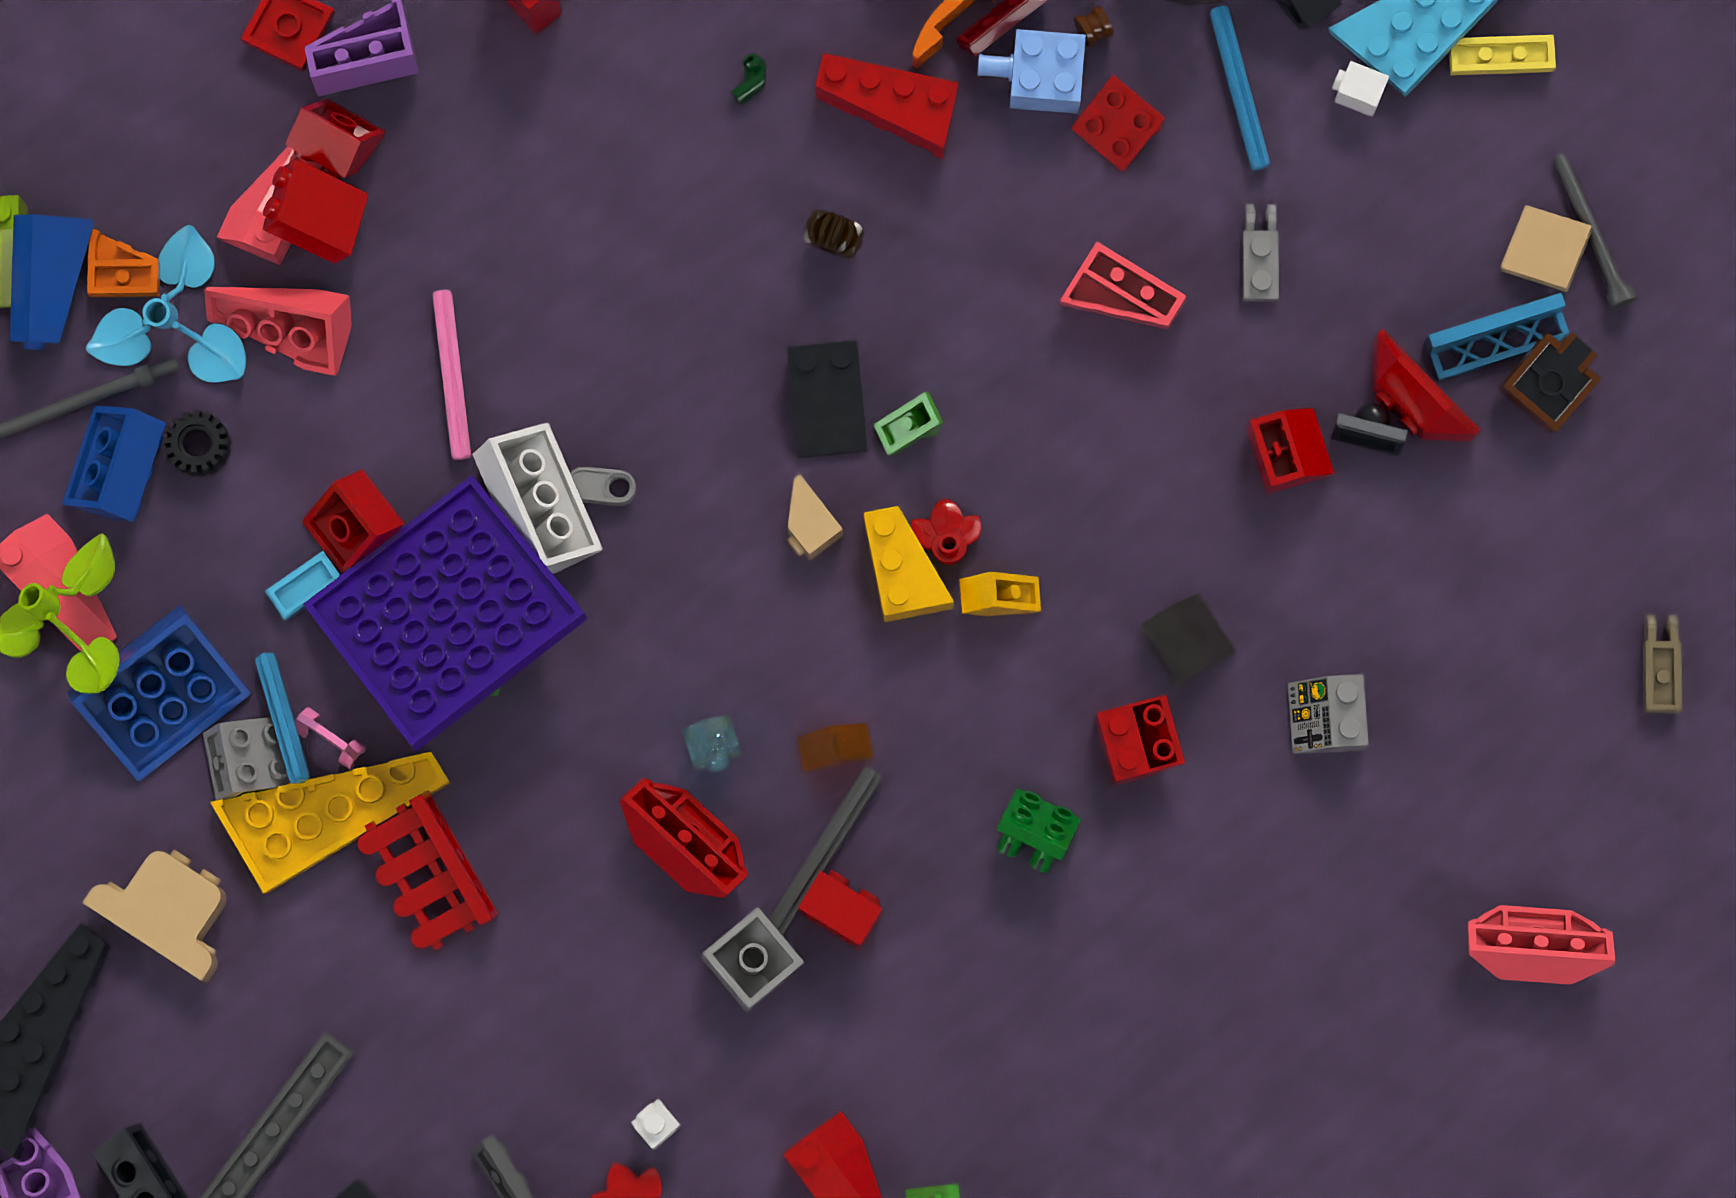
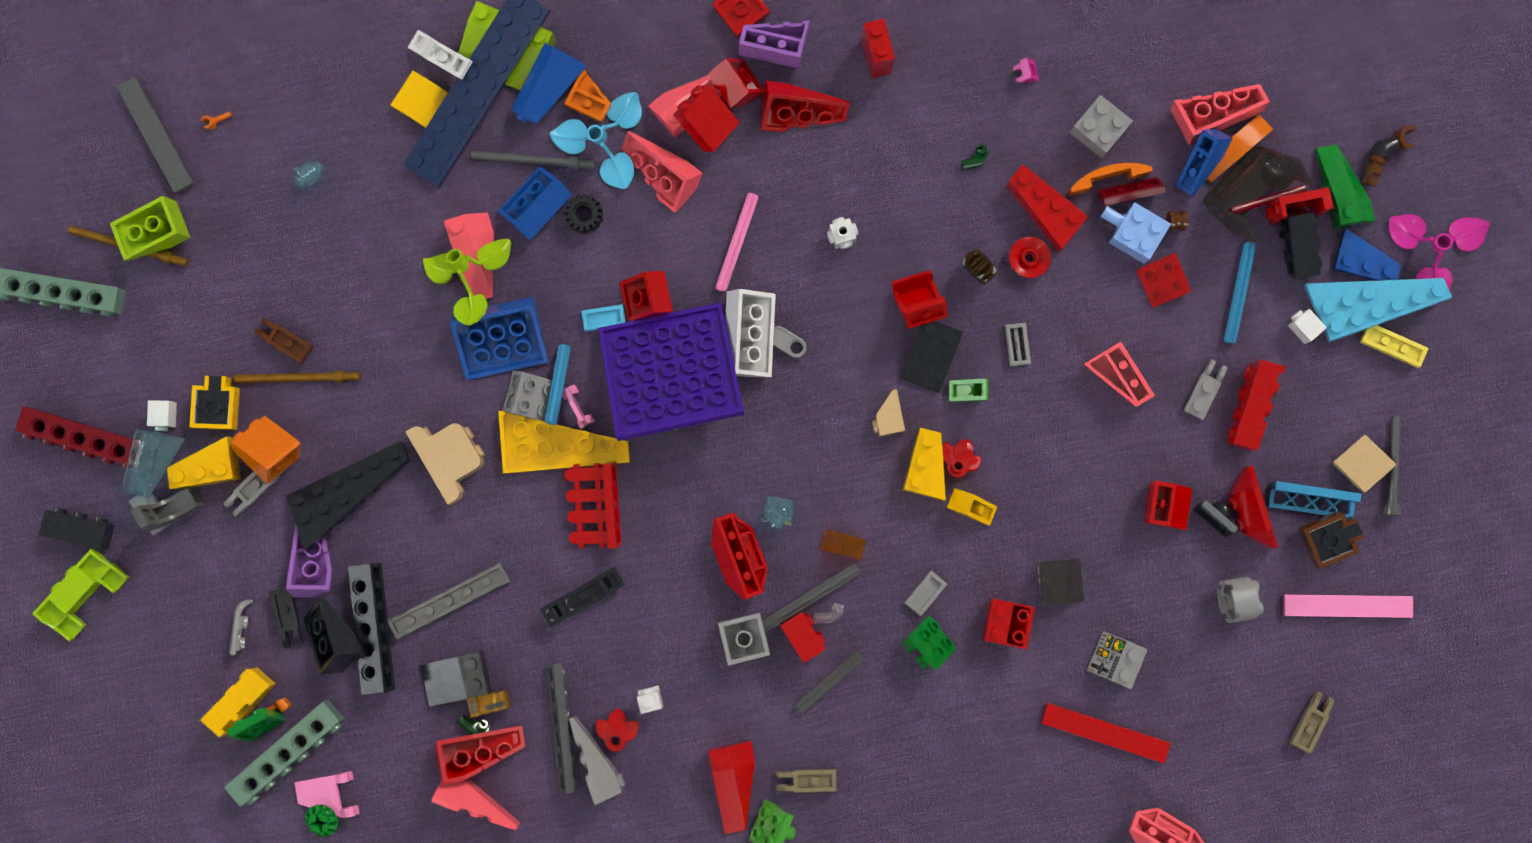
camera: 30 degrees right, 5 degrees up
(439, 132) = (793, 106): none -> red wedge
(477, 1020) = (582, 597): none -> black slope
(608, 294) = (839, 240): none -> white brick
(767, 325) = (919, 299): none -> red panel
(869, 863) = (829, 617): none -> clear arm
(903, 168) = (1037, 250): none -> red dish
(915, 964) = (829, 682): none -> dark grey axle
(959, 1125) = (809, 780): none -> dark tan hinge
(965, 347) = (1019, 362): none -> light grey tile
(995, 758) = (925, 593): none -> light grey tile
(1340, 239) = (1254, 404): none -> red wedge
(1366, 832) = (1105, 732): none -> red tile
(1462, 534) = (1239, 599): none -> light grey brick
(1627, 468) = (1348, 606): none -> bright pink tile

